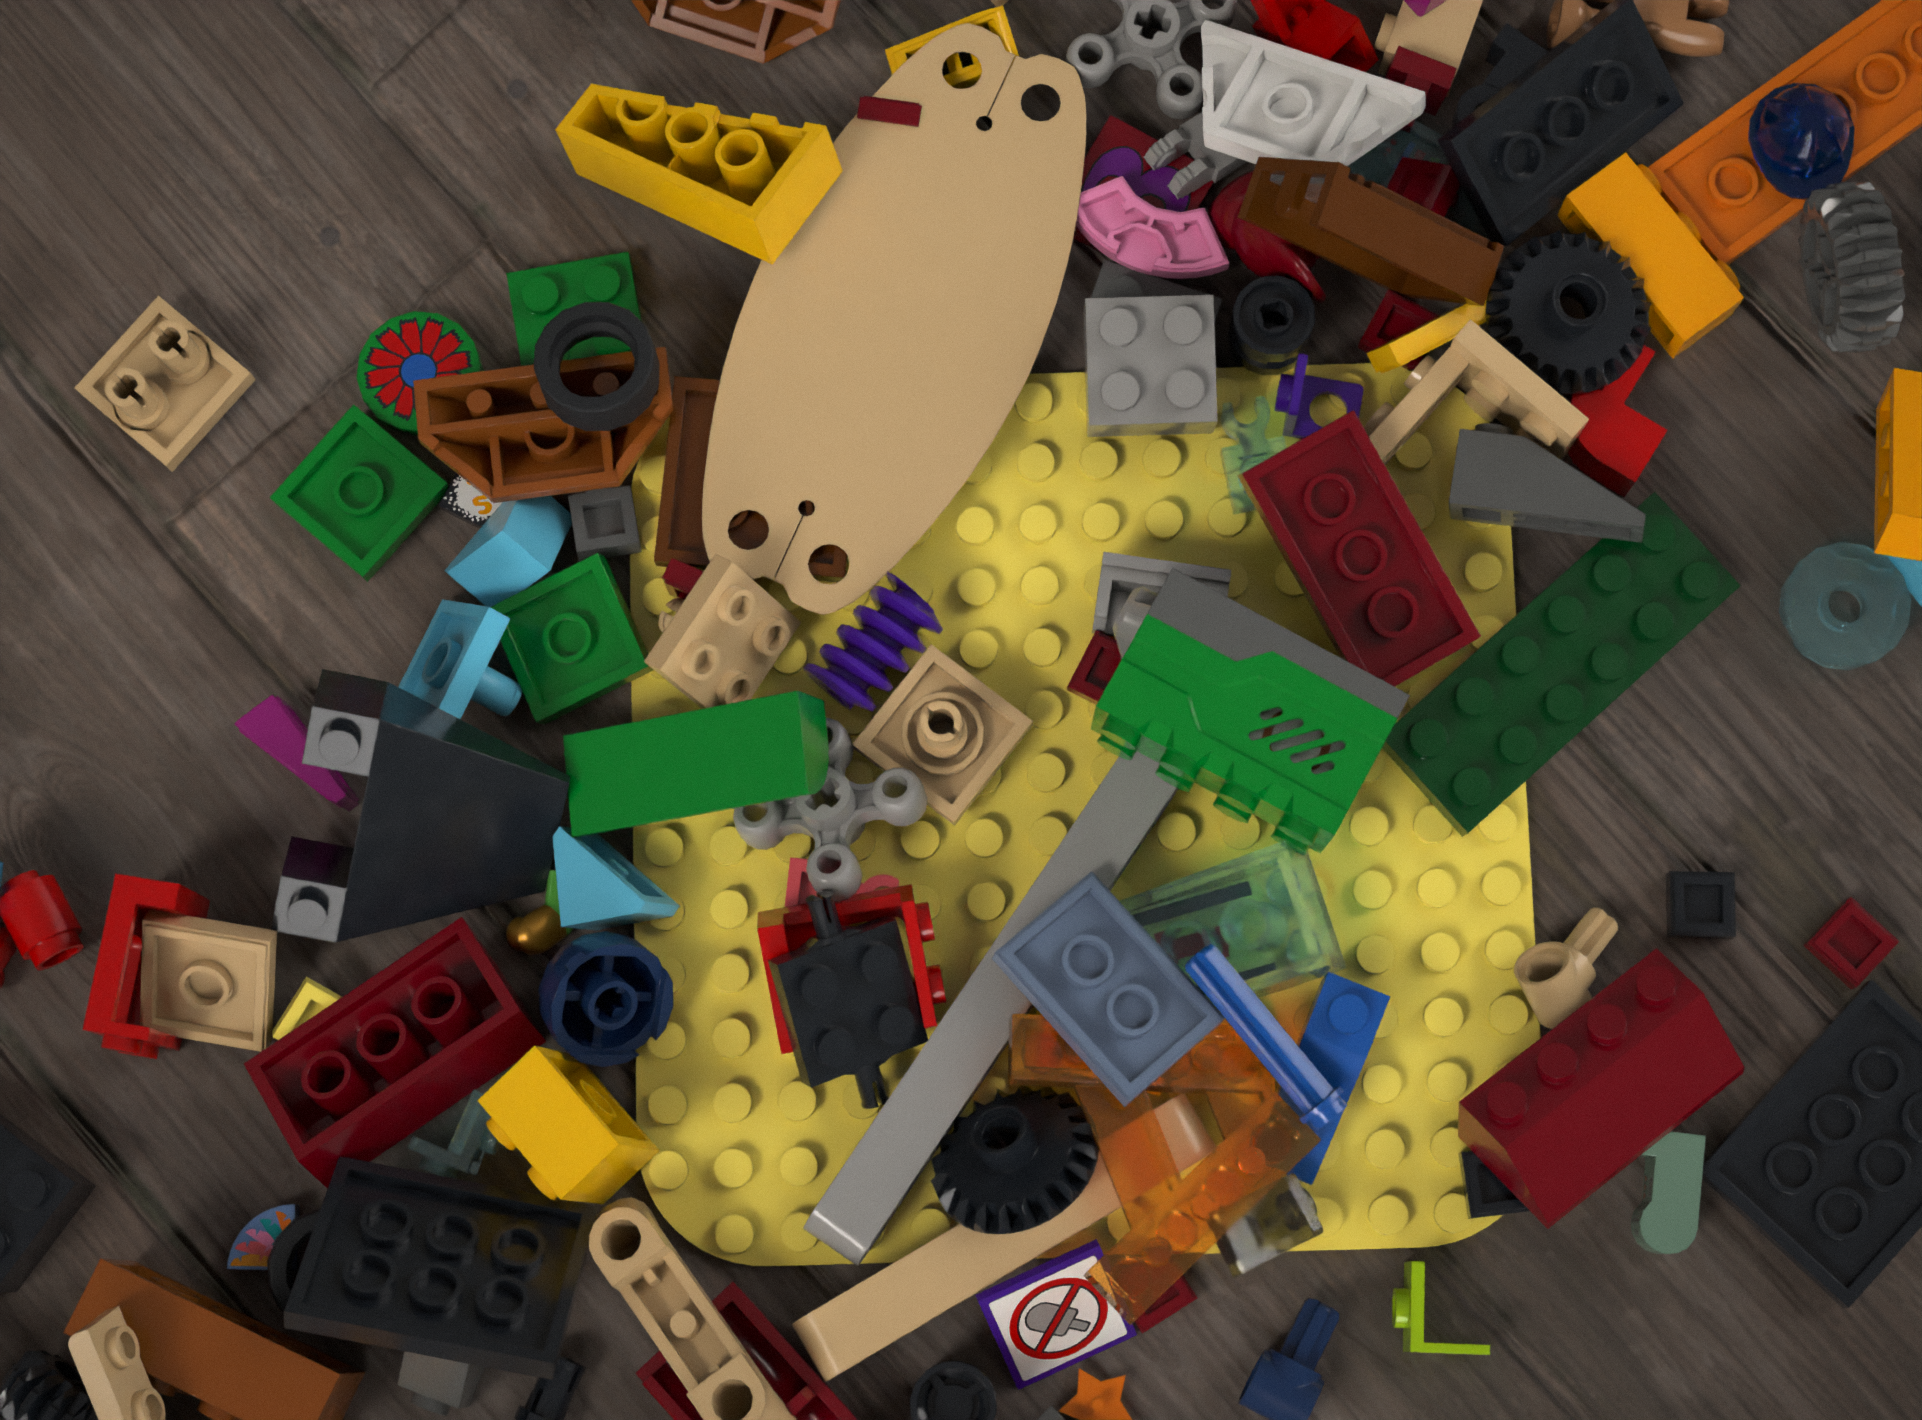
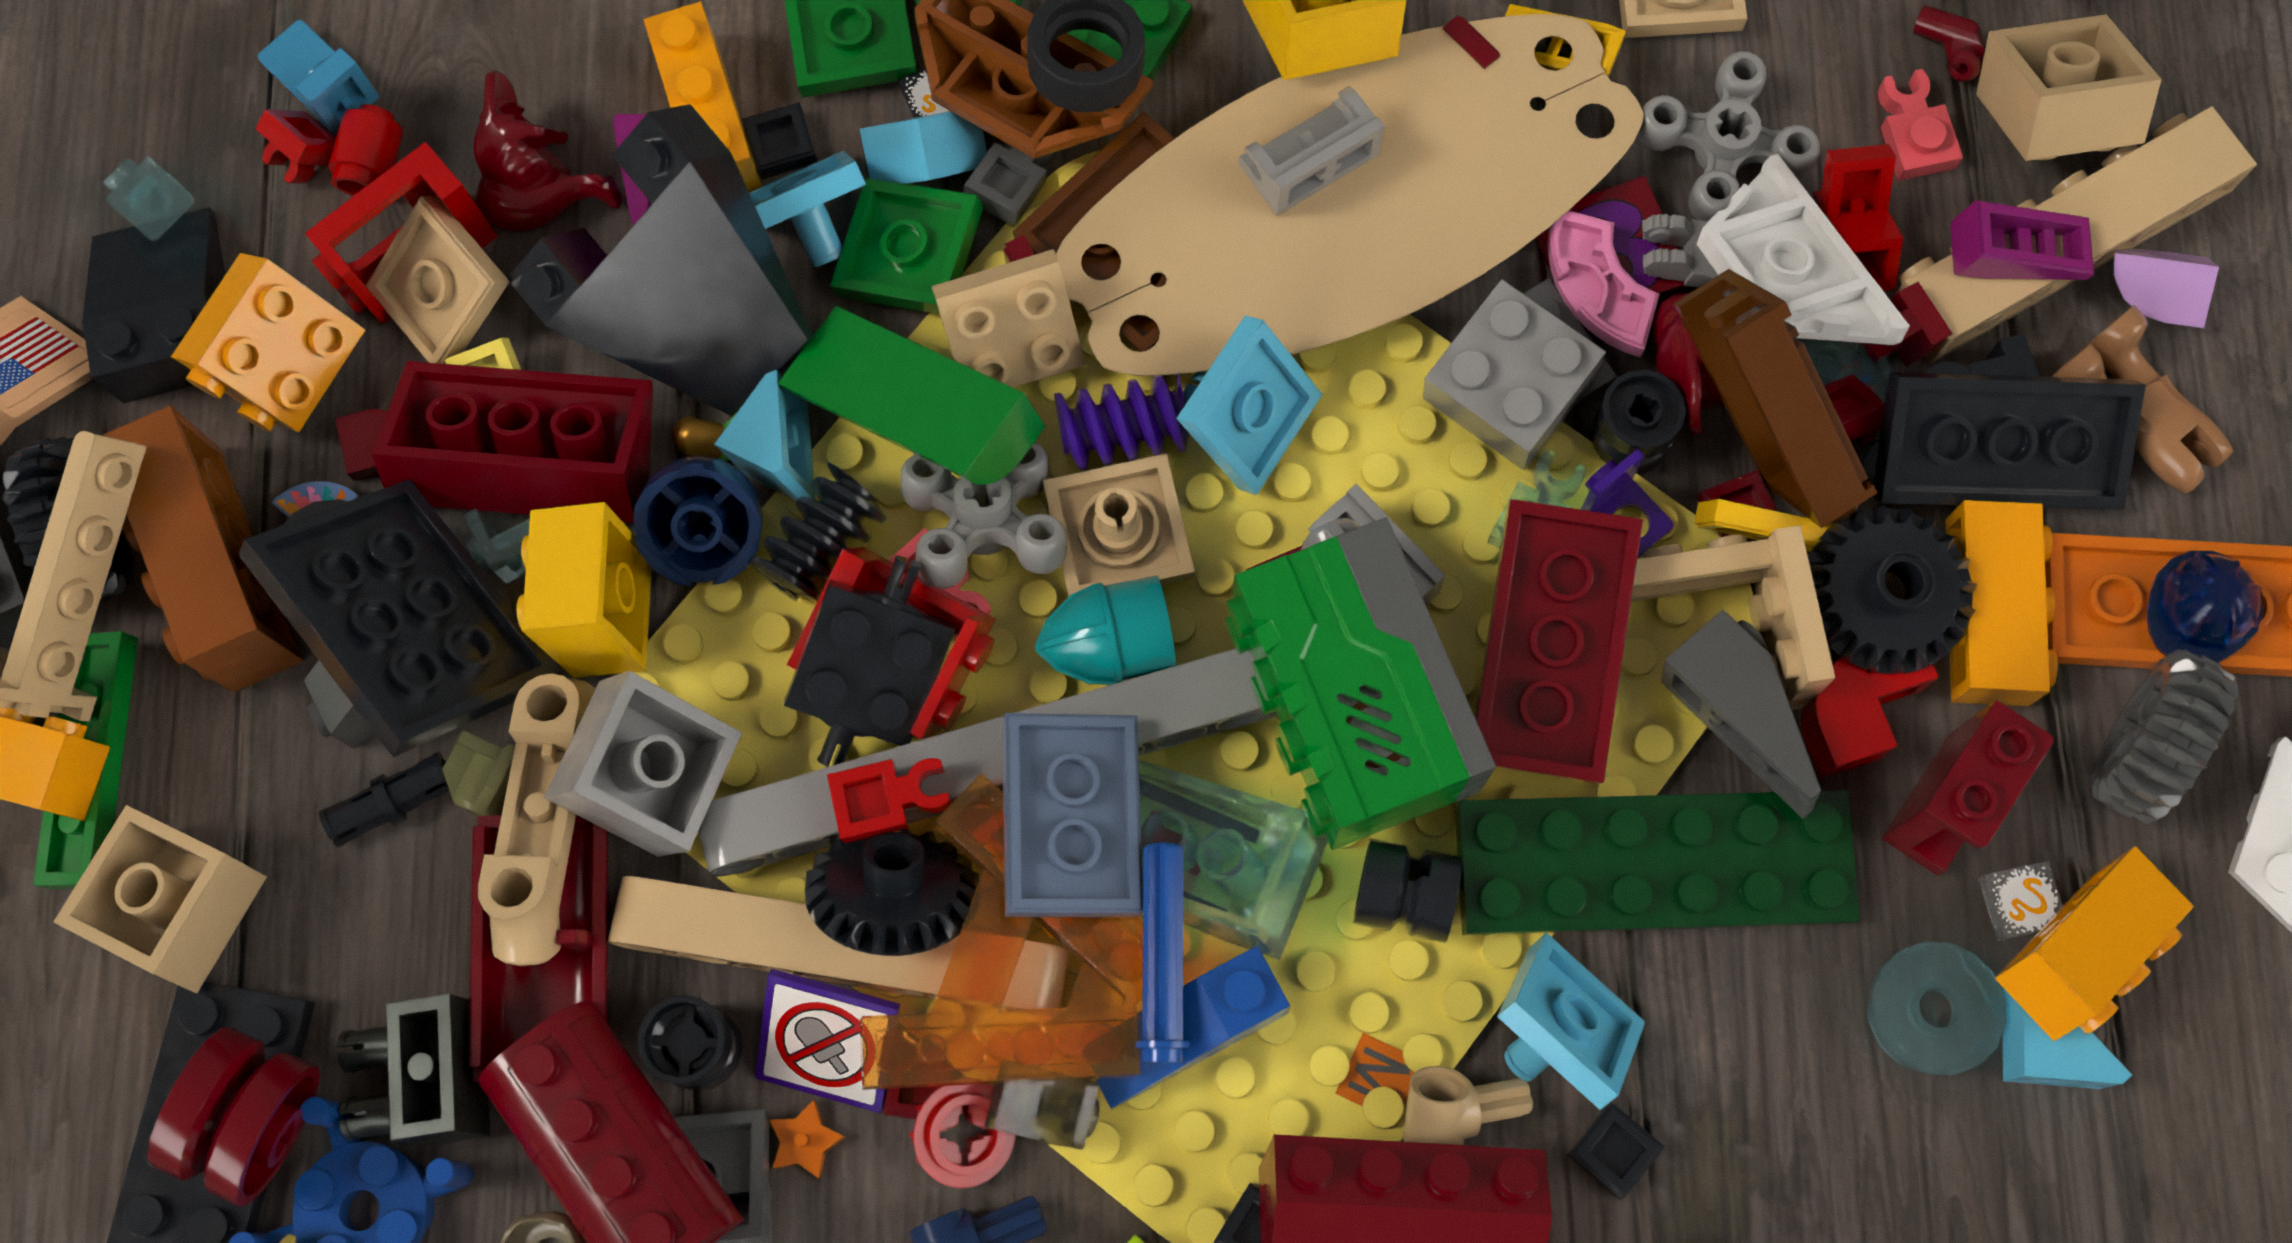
camera: 40 degrees right, 5 degrees down
(117, 1145) = (267, 344): none -> light orange brick
(195, 834) = (521, 178): none -> dark red piece
(260, 1154) = (357, 439): none -> dark red tile
(278, 638) = (697, 76): none -> light orange brick
(381, 632) = (780, 140): none -> black tile
(608, 1340) = (478, 774): none -> olive piece
(713, 932) = (819, 536): none -> black piece
(741, 1223) = (643, 764): none -> light grey brick
(844, 305) = (1314, 152): none -> light grey hinge
(946, 1100) = (874, 798): none -> red plate
(965, 555) = (1249, 405): none -> medium azure tile
(1012, 822) = (1110, 633): none -> teal helmet
(1241, 1299) = (939, 1156): none -> gear
(1402, 835) = (1408, 890): none -> black wheel
(1477, 988) = (1375, 1066): none -> orange tile
(1597, 838) = (1568, 1023): none -> medium azure tile
(1743, 422) = (1968, 787): none -> dark red panel
(1841, 473) = (2020, 899): none -> tile

